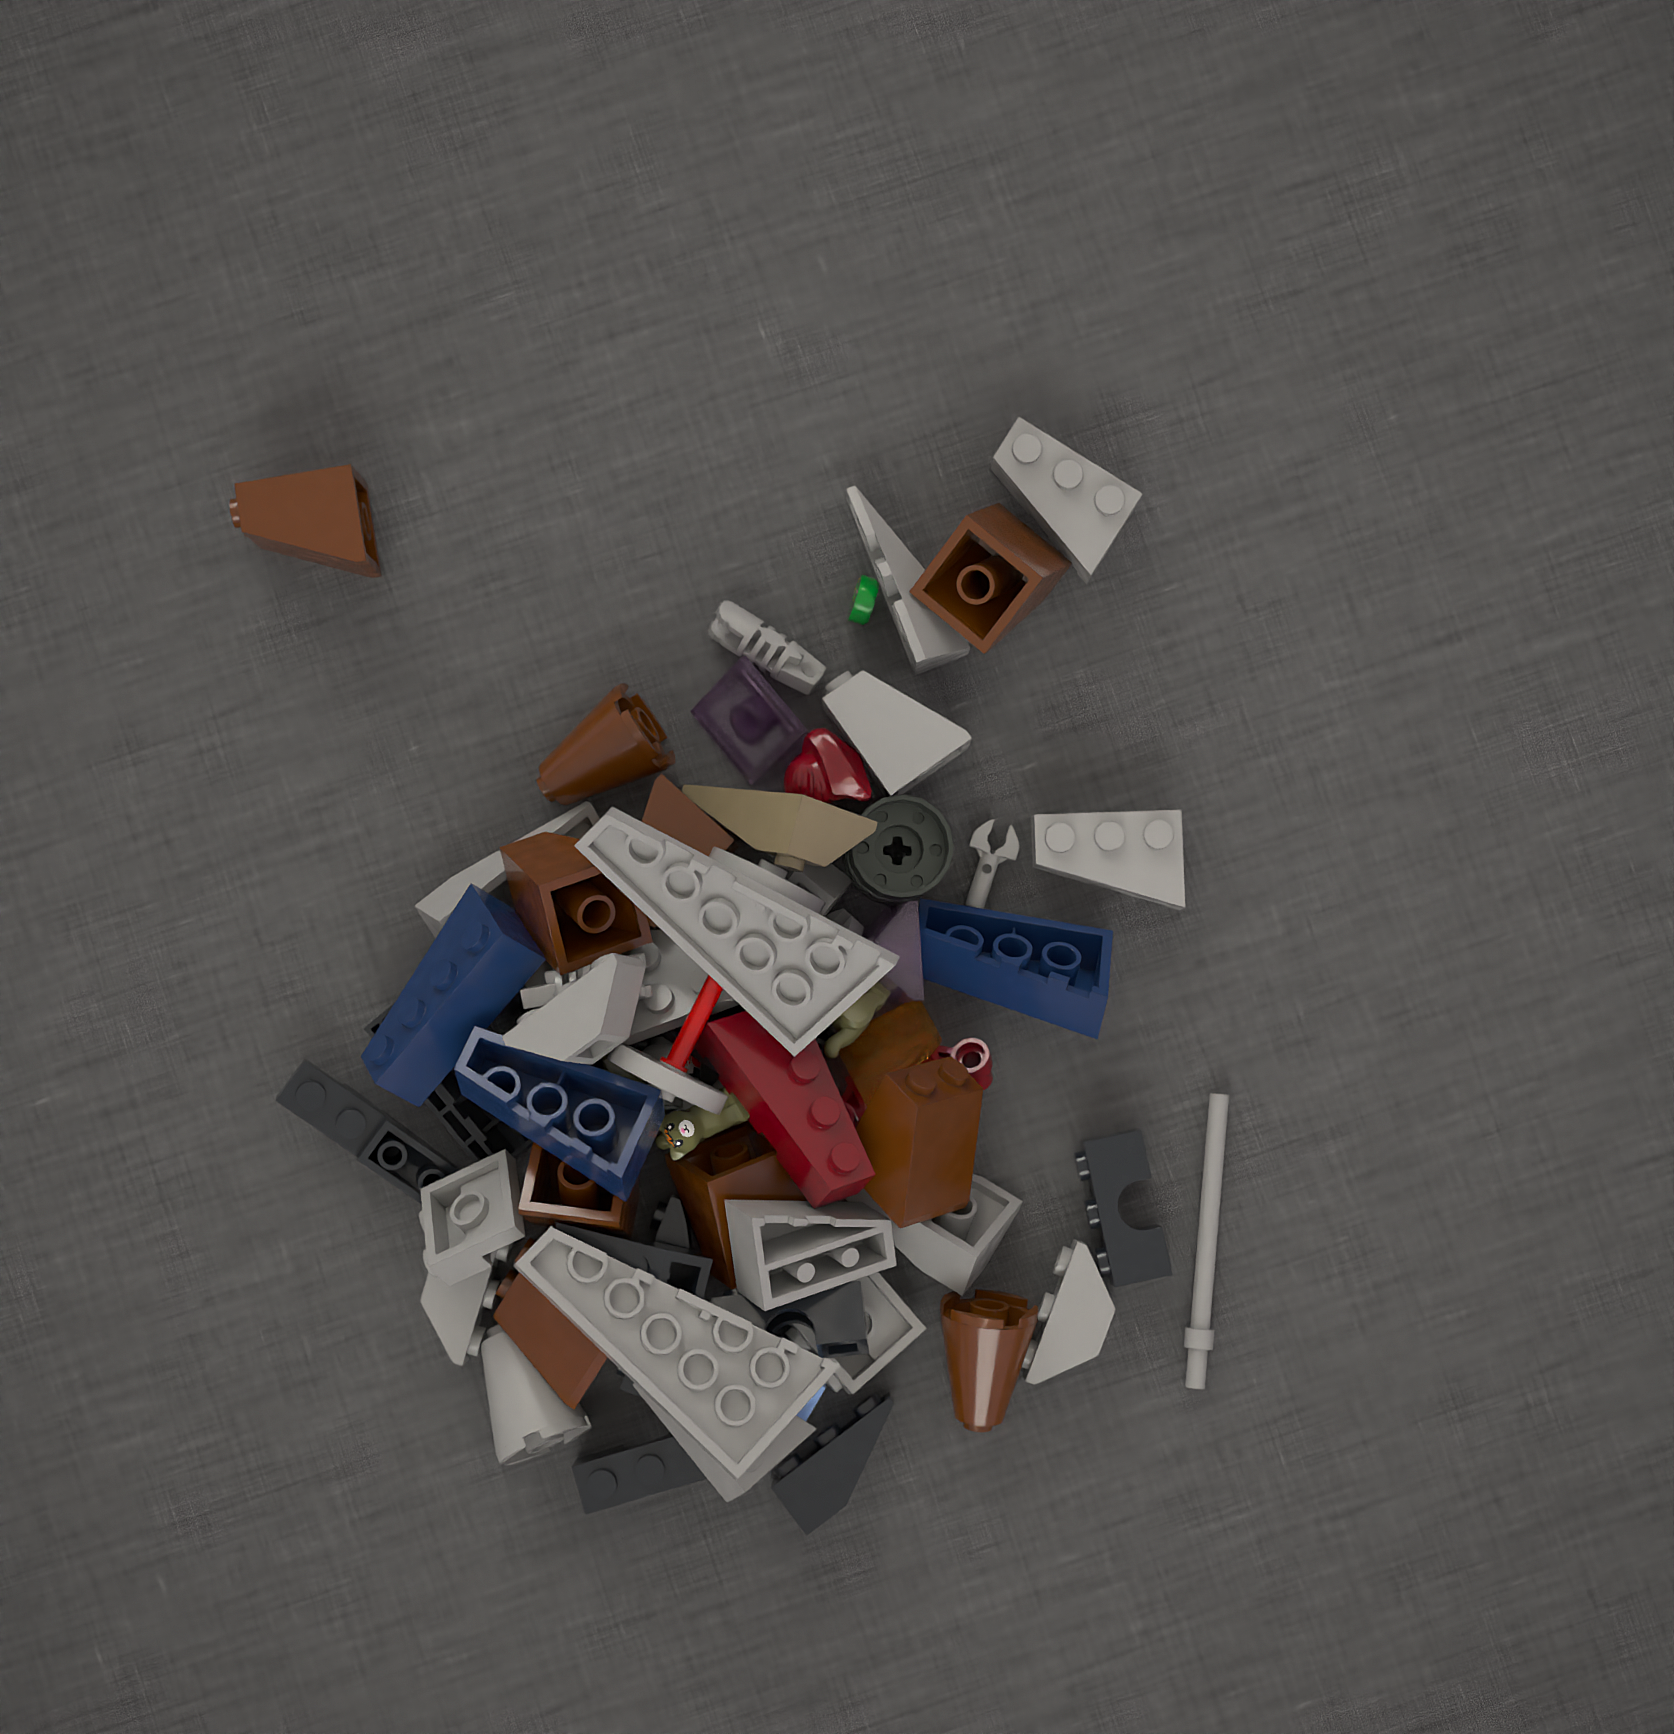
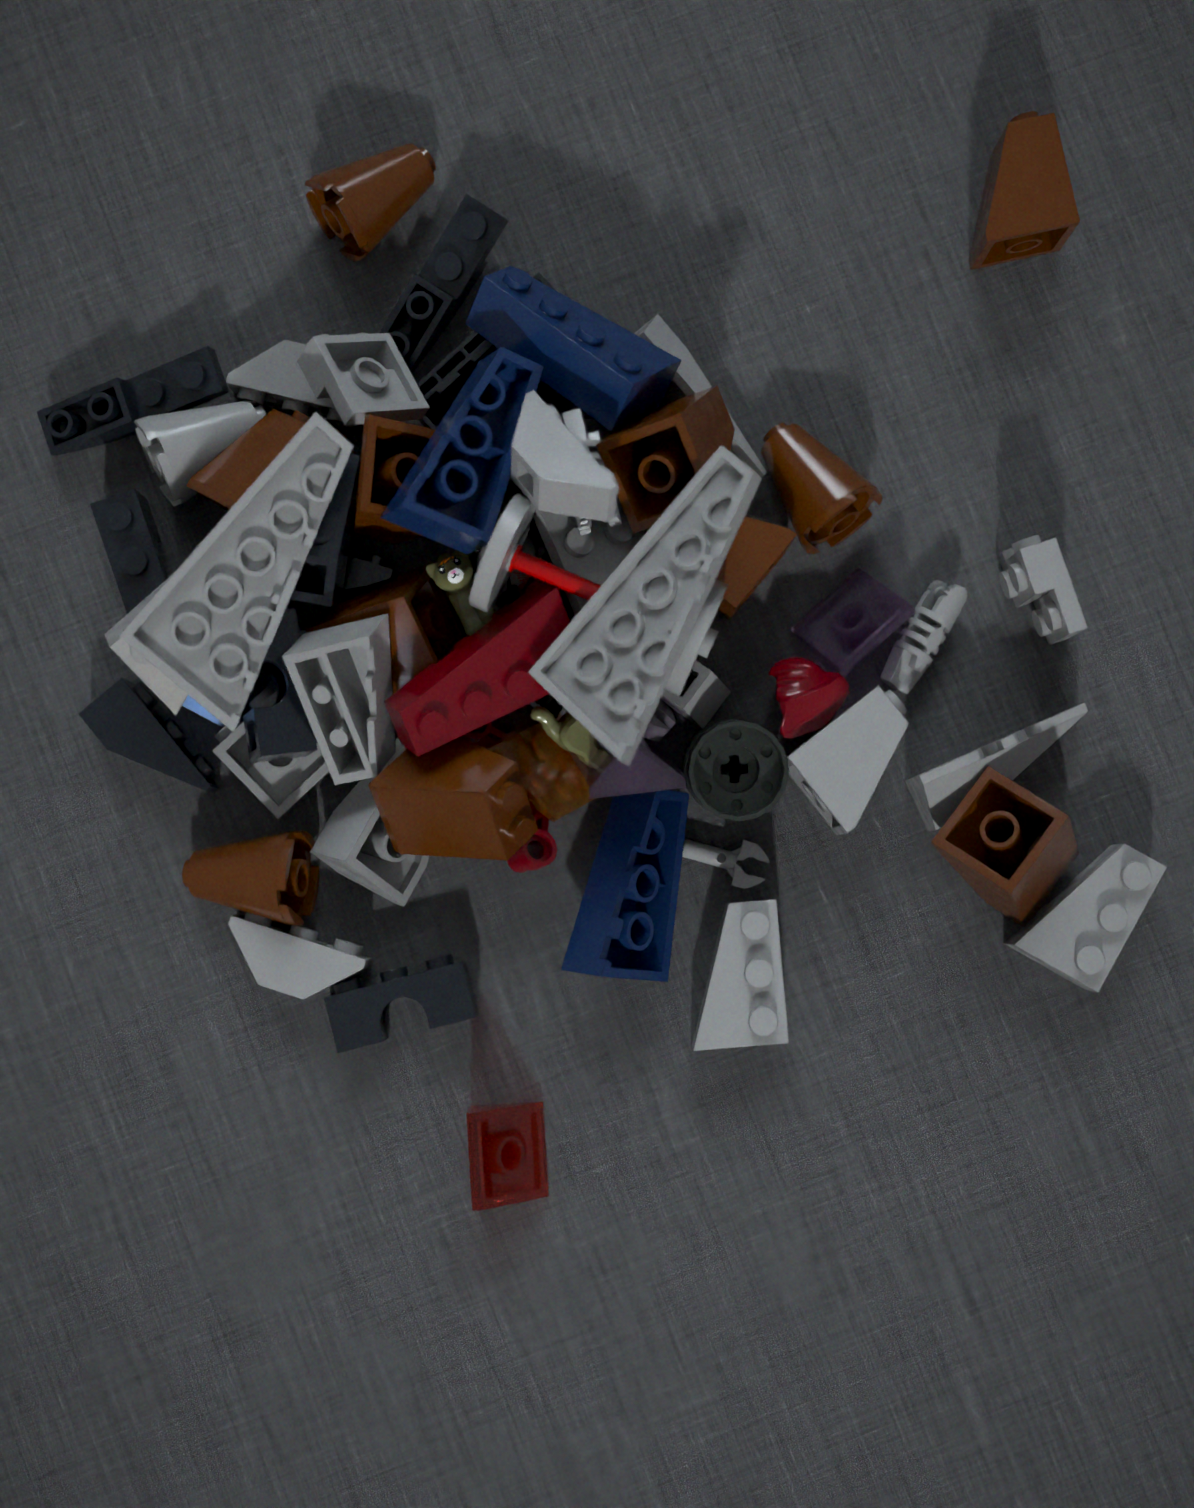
camera: 85 degrees right, 0 degrees up
(269, 1204) = (369, 196): none -> reddish brown cone
(477, 1477) = (111, 408): none -> black slope
(711, 526) = (1039, 575): none -> light grey plate
(784, 824) = (753, 655): dark tan wedge -> none
(863, 600) = (975, 726): green tile -> none
(1199, 1336) = (282, 1082): light grey bar -> none
(1281, 1104) = (506, 1154): none -> clear red slope

